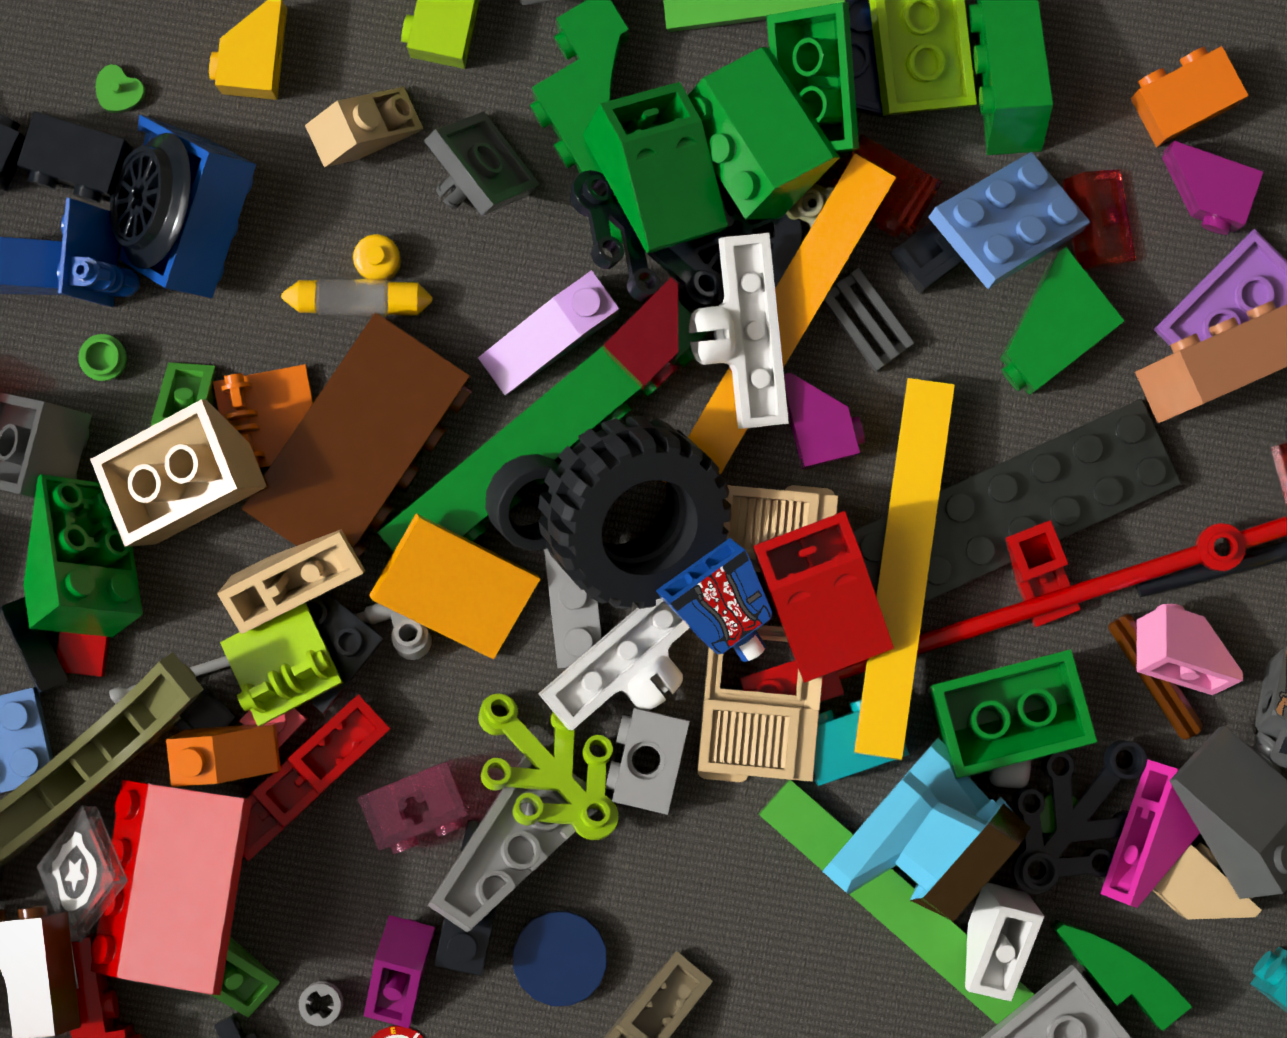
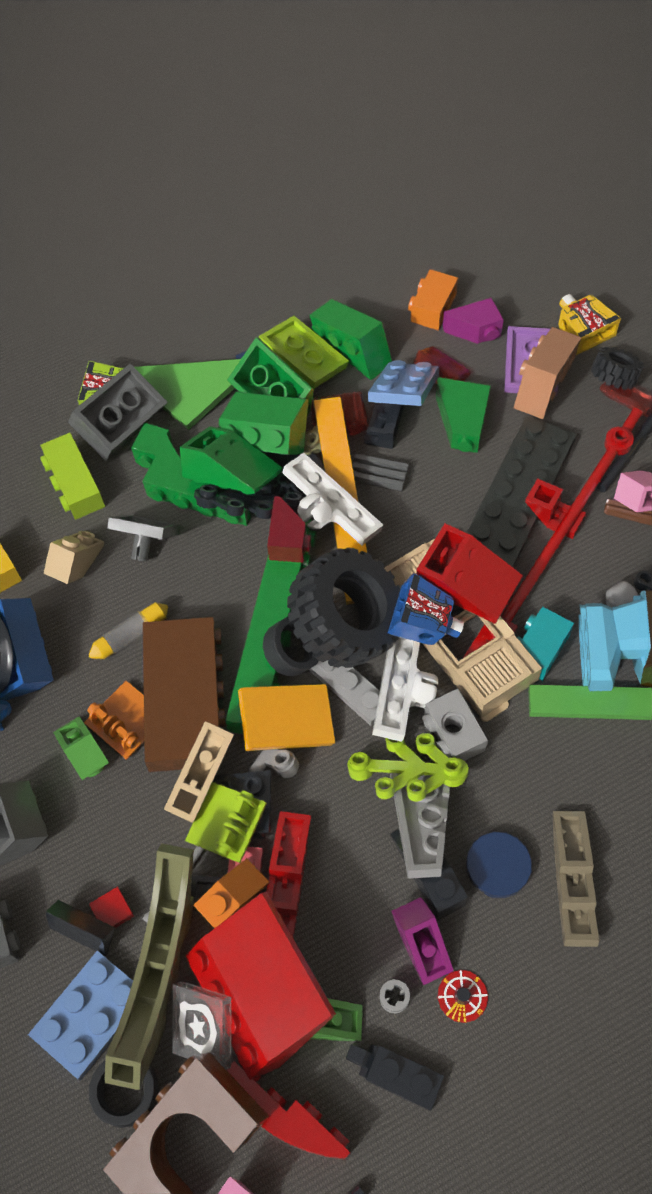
camera: 30 degrees left, 25 degrees down
(76, 562) = (76, 856): green slope -> none
(102, 357) = (15, 754): bright green plate -> none
(176, 474) = (96, 769): tan slope -> none
(377, 257) = (124, 606): yellow piece -> none
(386, 807) = (357, 827): clear pink brick -> none
(550, 333) = (237, 576): slope -> none
(820, 424) = (401, 524): magenta slope -> none
(905, 566) = (469, 518): yellow tile -> none
(1012, 714) = (600, 567): green slope -> none

